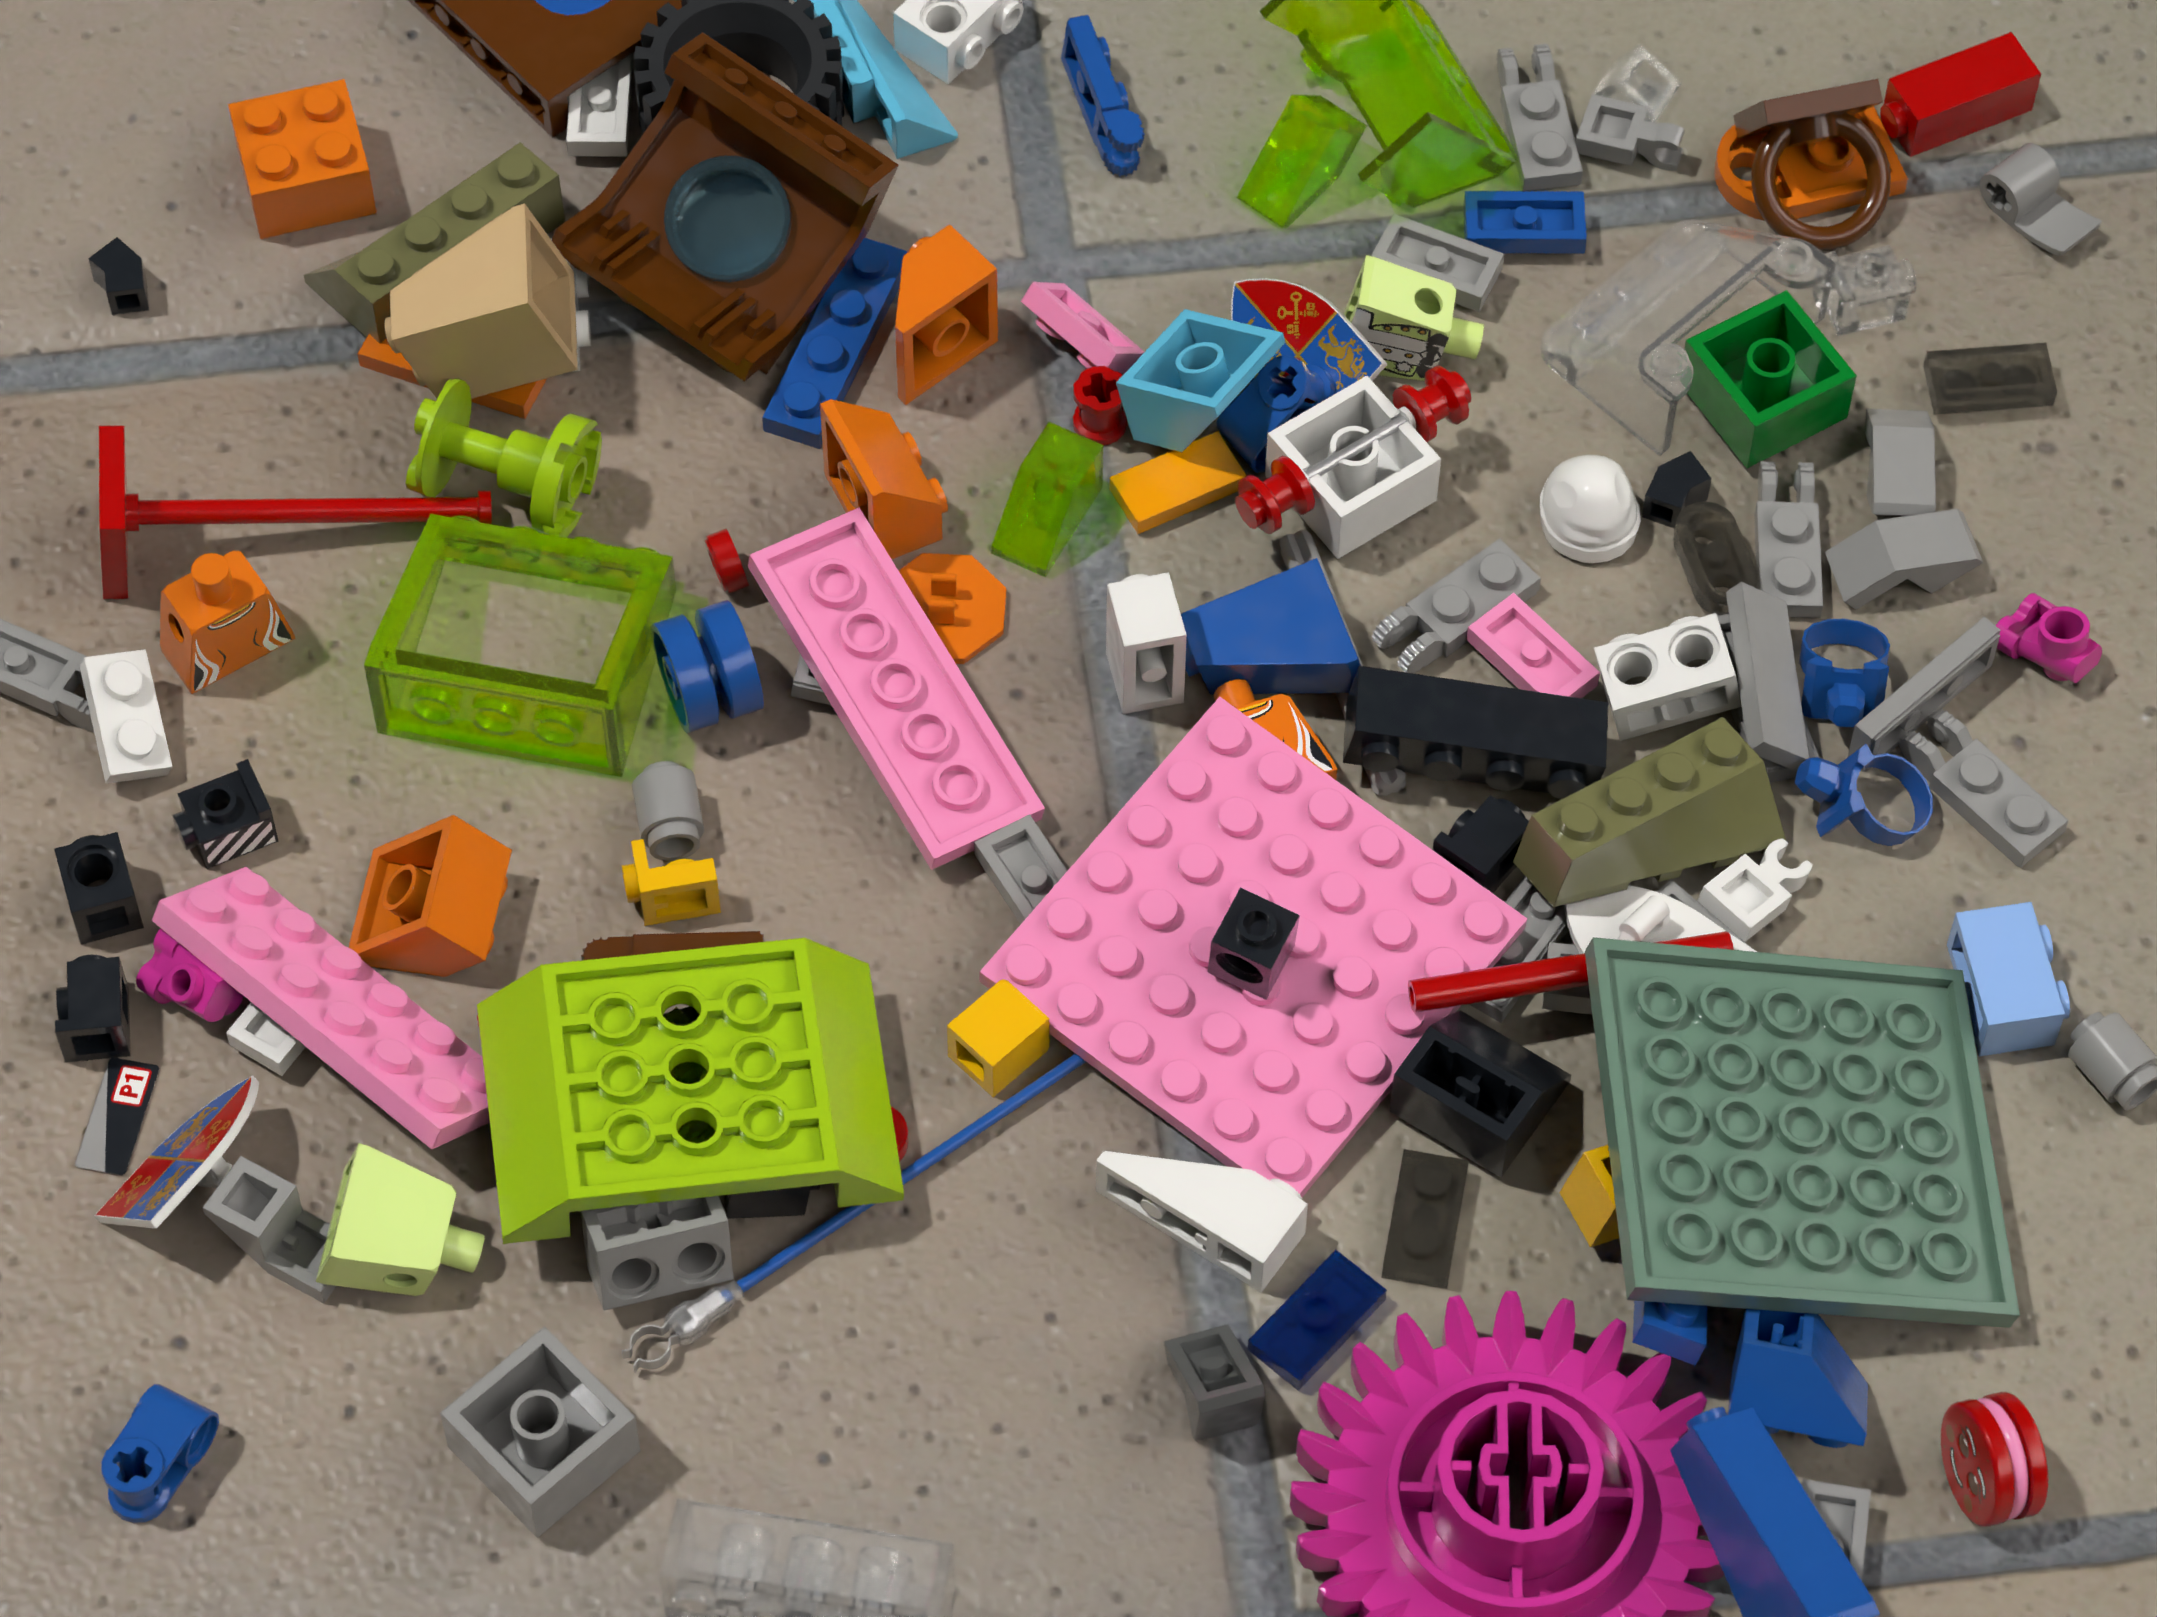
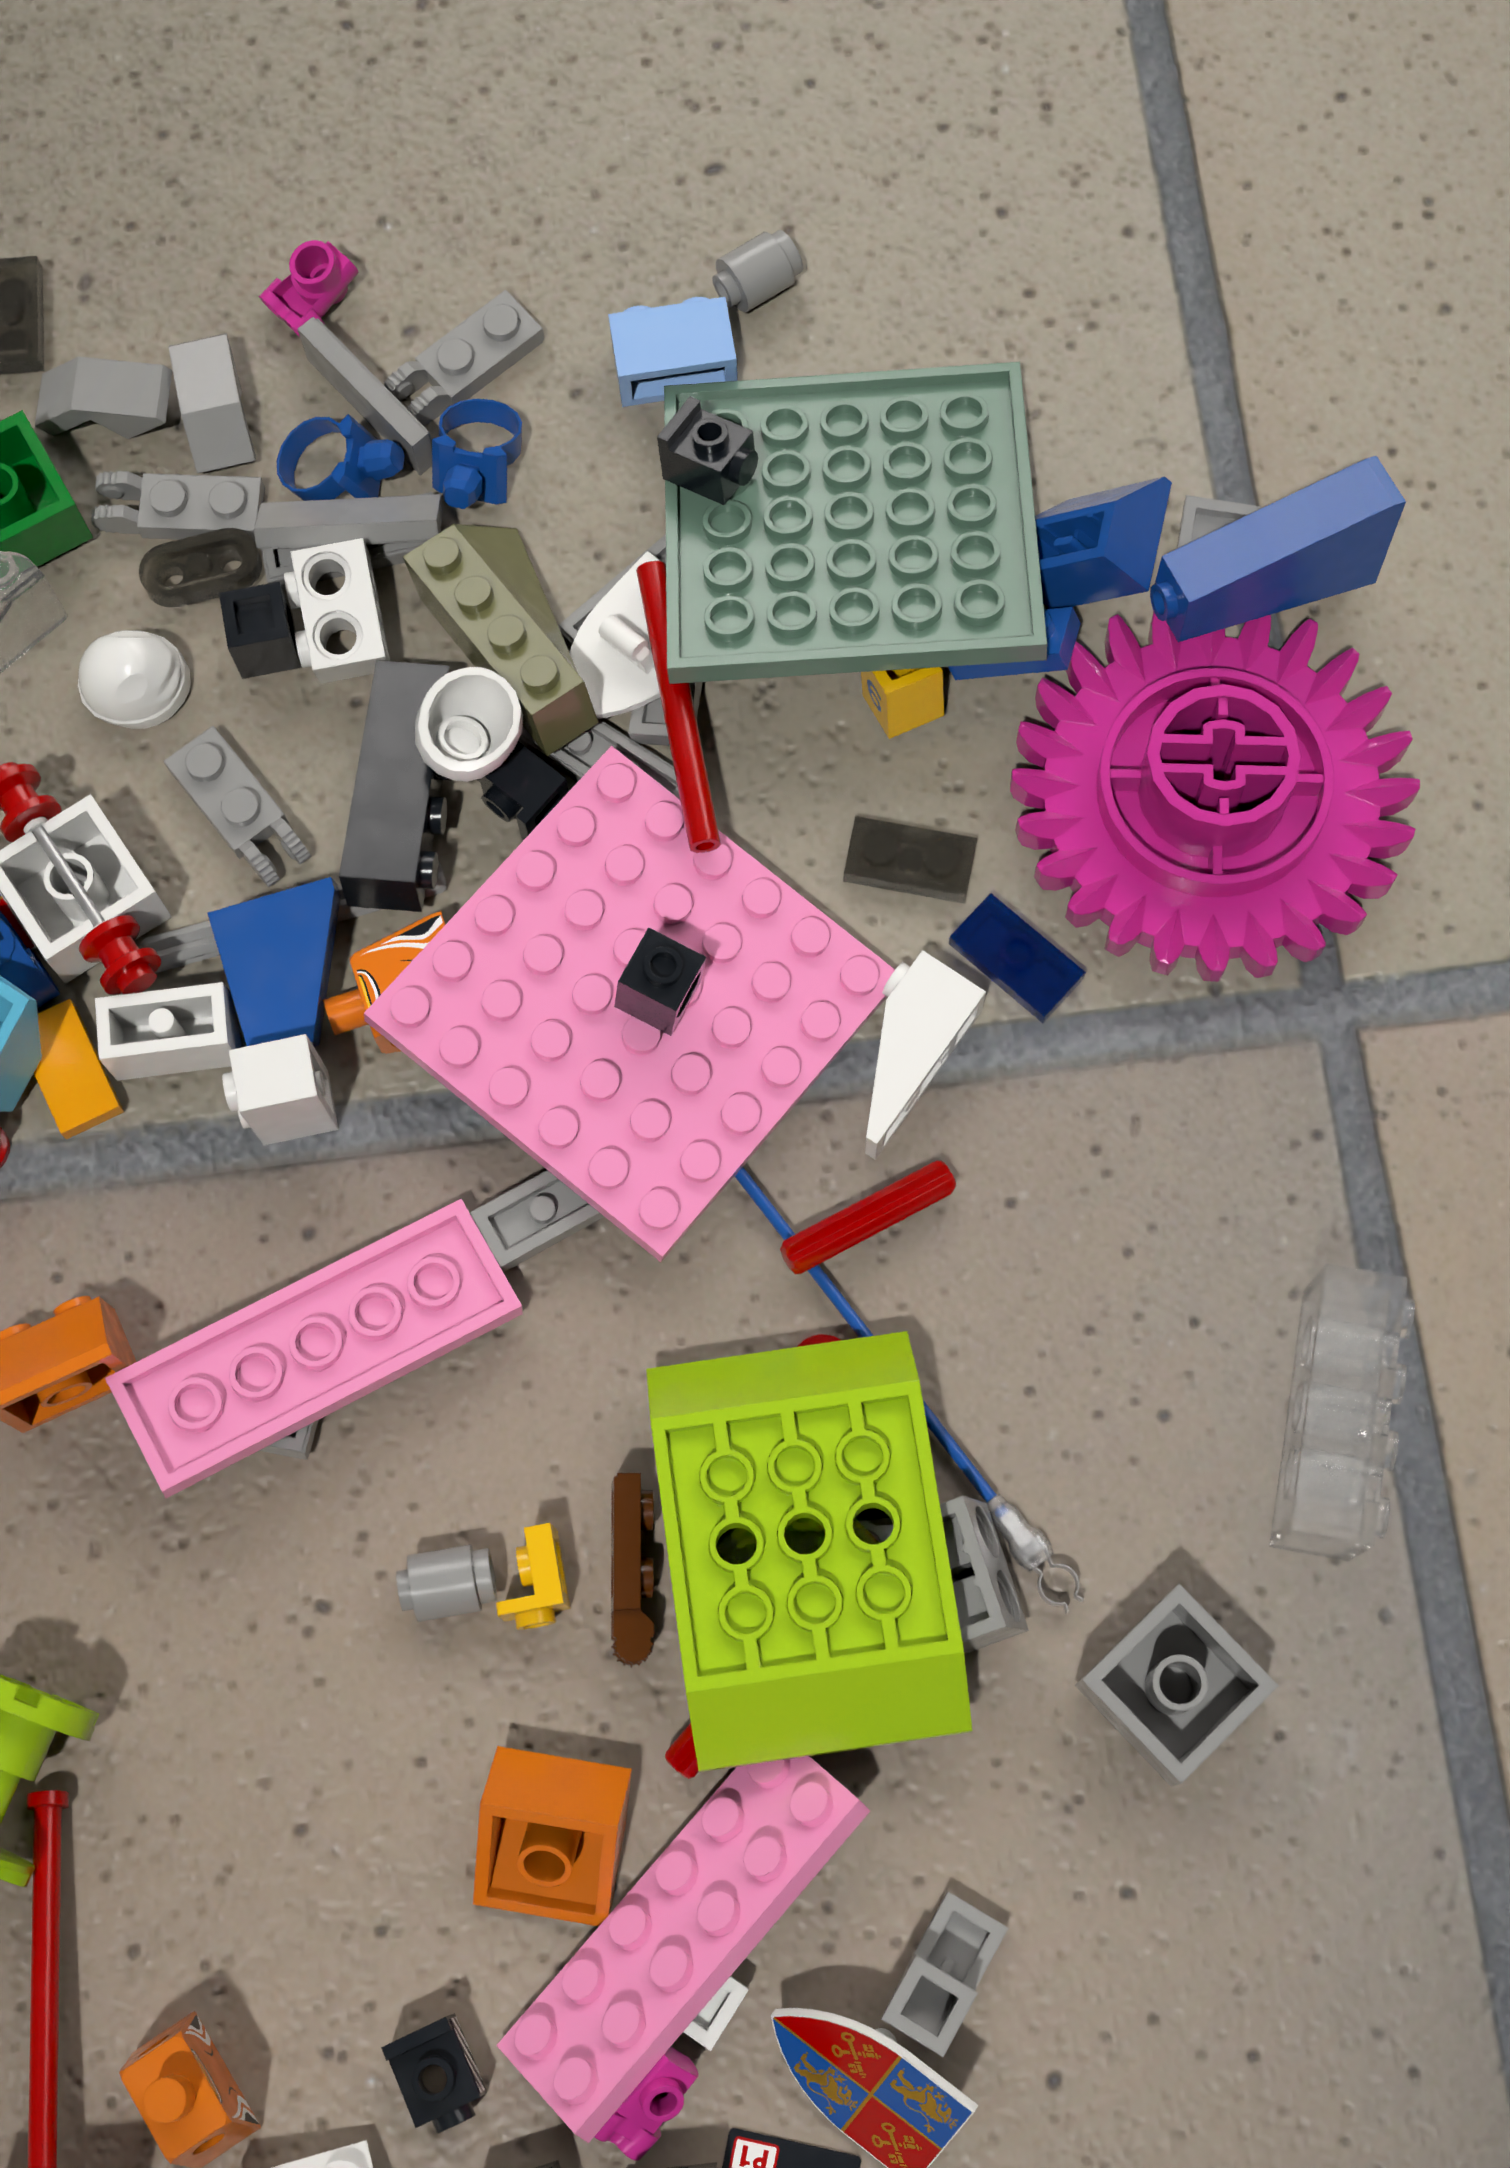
camera: 85 degrees left, 15 degrees up
(158, 1443) = (1185, 2088): blue piece -> none
(393, 1228) = (948, 1853): yellowish green torso -> none
(508, 708) = (328, 1771): clear neon green windscreen -> none
(707, 666) = (283, 1541): blue wheel -> none
(726, 561) = (139, 1529): red tile -> none
(959, 601) = (193, 1290): orange piece -> none
(998, 1037) = (724, 1243): yellow panel -> none
(1028, 1170) = (867, 1217): none -> red axle
(1049, 499) = (87, 1193): clear neon green slope -> none
(1205, 540) = (167, 1031): none -> white brick
(1217, 1382) = (1095, 1041): dark grey slope -> none
(1475, 1090) = (789, 798): black slope -> none
(1521, 762) = (468, 724): none -> white hat
(1531, 651) = (302, 736): bright pink plate -> none
(1638, 596) = (260, 630): none -> black brick
(1674, 488) = (116, 601): black piece -> none
(1753, 894) = (572, 559): white plate -> none
(1860, 983) = (706, 453): none -> black brick
(1994, 1459) = (1162, 390): red head -> none

